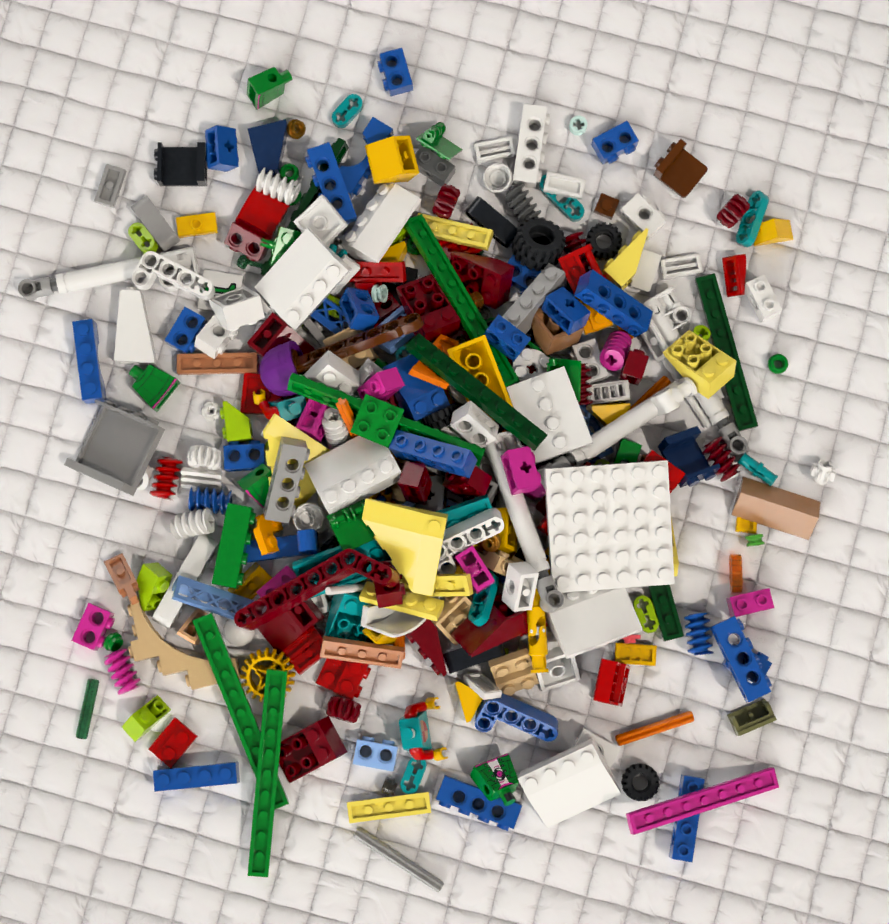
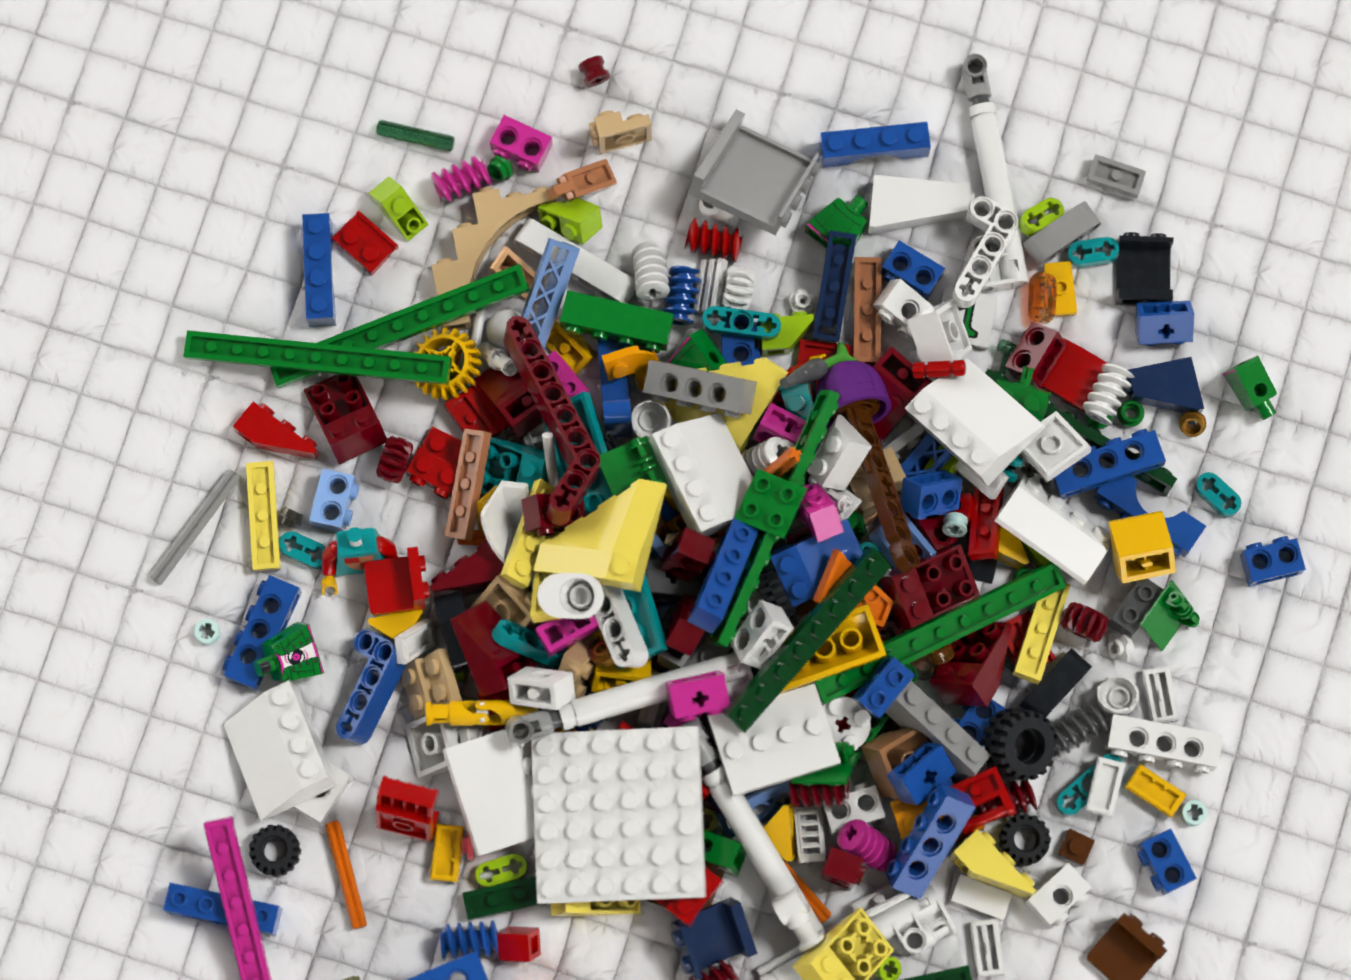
camera: 90 degrees right, 5 degrees down
(34, 574) = (594, 71): none -> dark red wheel
(83, 556) = (613, 133): none -> tan plate
(163, 202) = (1093, 245): none -> teal beam
(200, 386) = (834, 285): none -> dark blue piece
(204, 236) = (1042, 297): none -> clear orange beam
(238, 439) = (733, 331): none -> teal beam
(263, 635) = (497, 359): none -> white pin
(264, 306) = (939, 369): none -> red axle
(266, 394) = (815, 368): none -> dark grey piece
(325, 807) = (267, 433): none -> red slope
(440, 701) = (396, 583): none -> red bracket
(455, 564) = (570, 595): none -> white piece
(461, 177) = (1120, 646): none -> white plate
(481, 850) = (214, 627): none -> light aqua bush
(564, 151) = (1155, 791): none -> yellow plate
(699, 598) = (519, 944): none -> red panel

